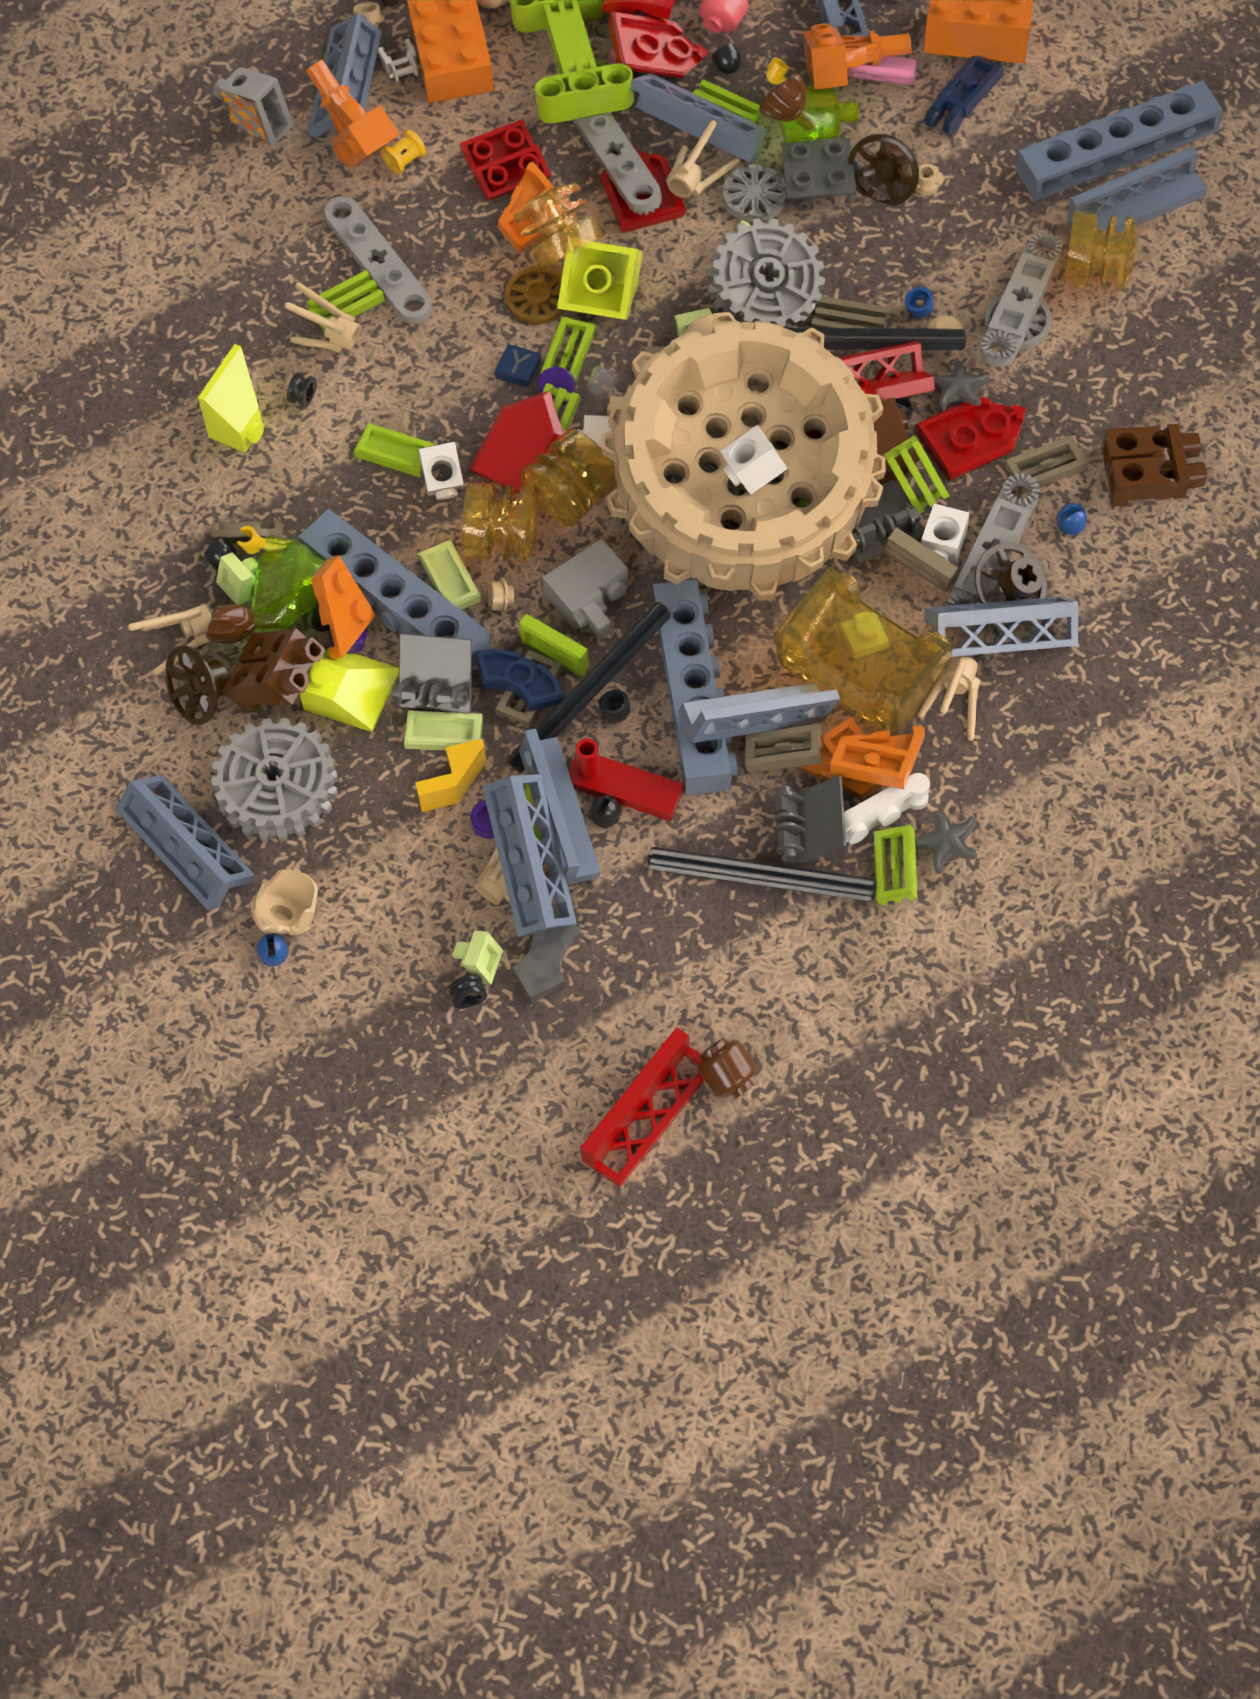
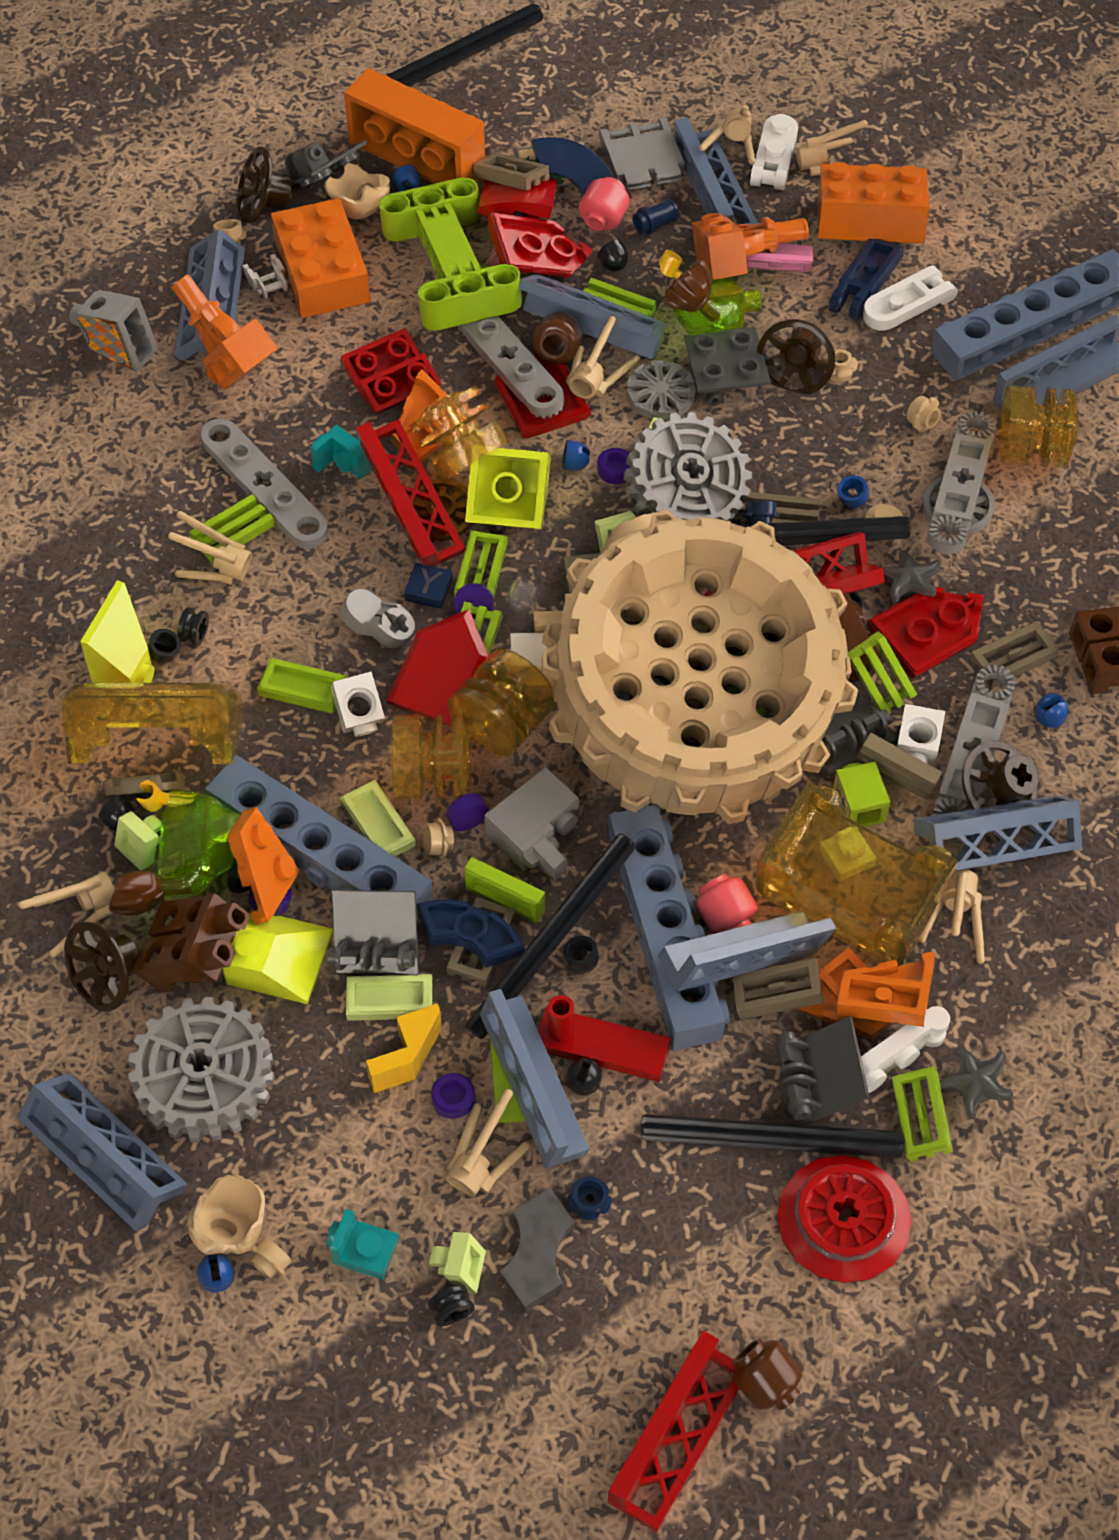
camera: 10 degrees left, 5 degrees down
(274, 401) = (165, 641): none -> black hinge
(307, 467) = (207, 708): none -> clear yellow windscreen
(318, 941) = (269, 1258): none -> tan plate
(397, 937) = (361, 1245): none -> teal bracket
(410, 142) = (269, 372): yellow bush -> none
(451, 232) = (341, 448): none -> teal bracket
(467, 393) = (377, 618): none -> light grey piece
(497, 284) = (398, 494): none -> red fence
(523, 854) = (503, 1138): sand blue fence -> none
(528, 574) = (467, 812): none -> dark purple tile
(594, 904) = (589, 1187): none -> dark blue plate
(663, 137) = (557, 338): none -> reddish brown head
(666, 252) = (575, 456): none -> blue hinge
(699, 262) = (612, 465): none -> dark purple tile
(747, 670) = (726, 904): none -> coral head
(752, 460) = (714, 669): white brick -> none
(772, 21) = (648, 219): none -> dark blue pin
(827, 969) = (839, 1249): none -> red piece
(829, 316) = (761, 511): none -> dark blue plate
(883, 583) = (862, 793): none -> lime brick
(997, 231) = (924, 413): none -> tan plate
(1001, 118) = (907, 299): none -> white plate

